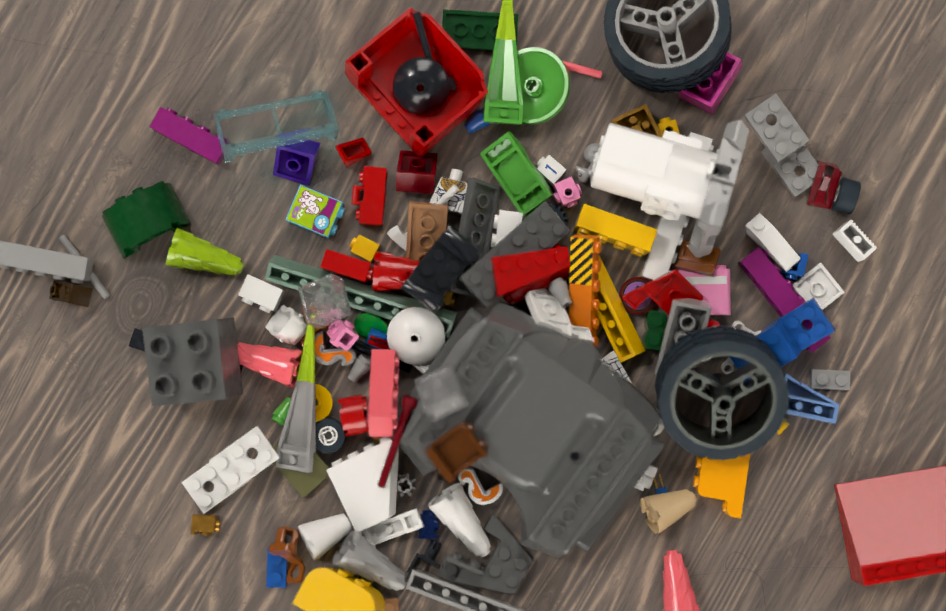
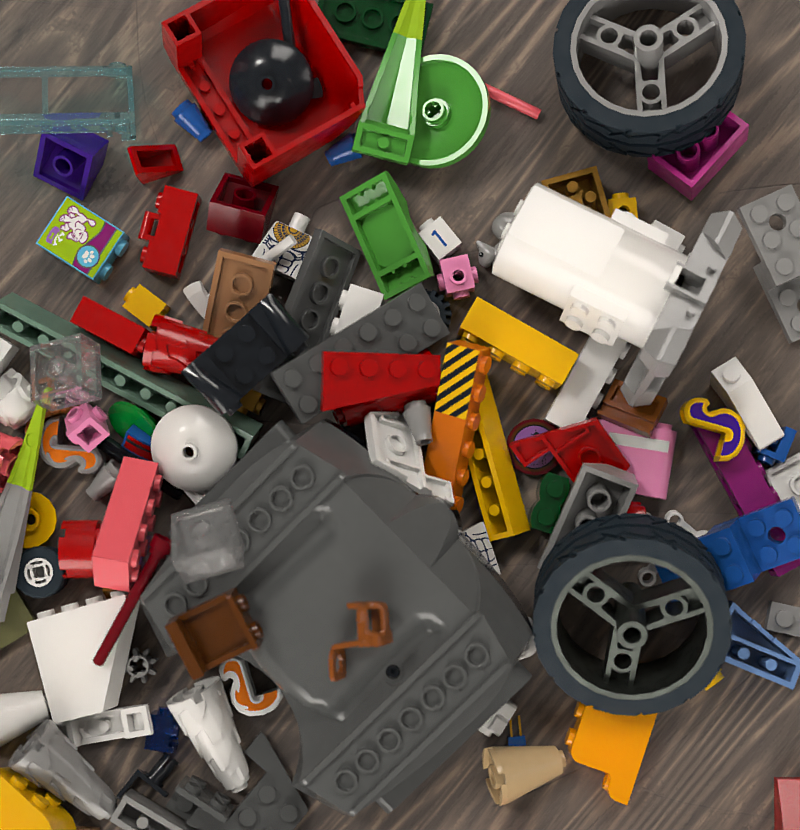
camera: 10 degrees right, 0 degrees up
(371, 119) = (191, 119): none -> blue cone
(559, 433) = (379, 636): none -> dark orange piece
(755, 257) = (720, 421): none -> yellow animal

